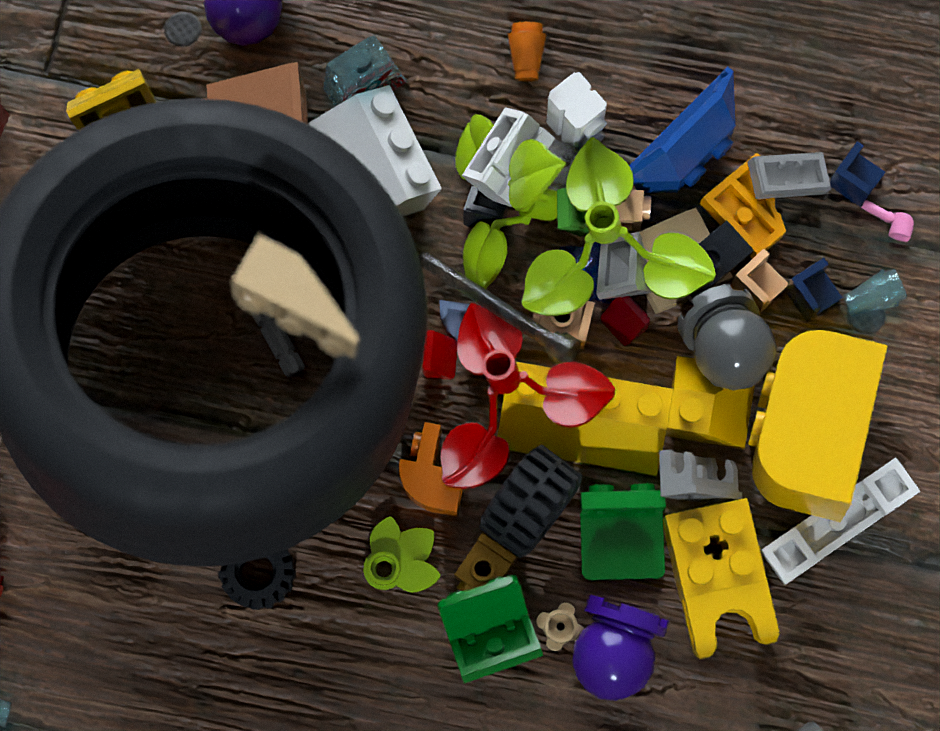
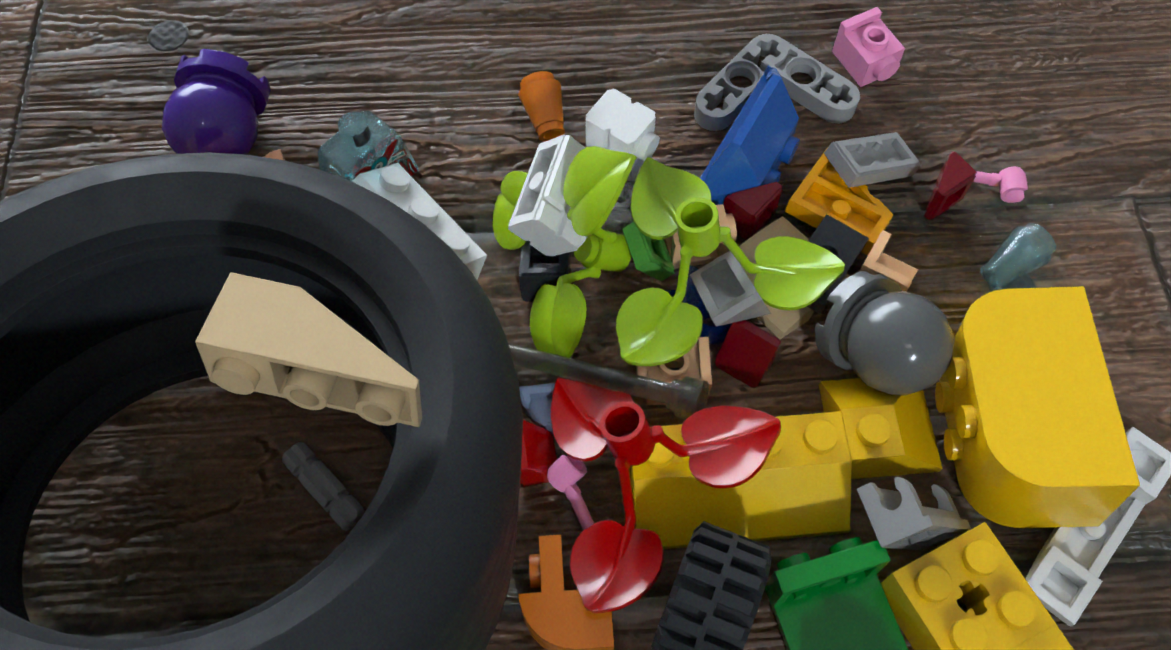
camera: 20 degrees left, 15 degrees down
(456, 380) = (563, 477): none -> bright pink hand
(671, 196) = (753, 207): none -> dark red slope
(742, 65) = (787, 61): none -> light grey beam
(813, 291) = (946, 272): dark blue panel -> none
(822, 77) = (868, 48): none -> bright pink brick
(845, 218) = (950, 185): none -> dark red slope
(856, 176) = (938, 142): dark blue panel -> none

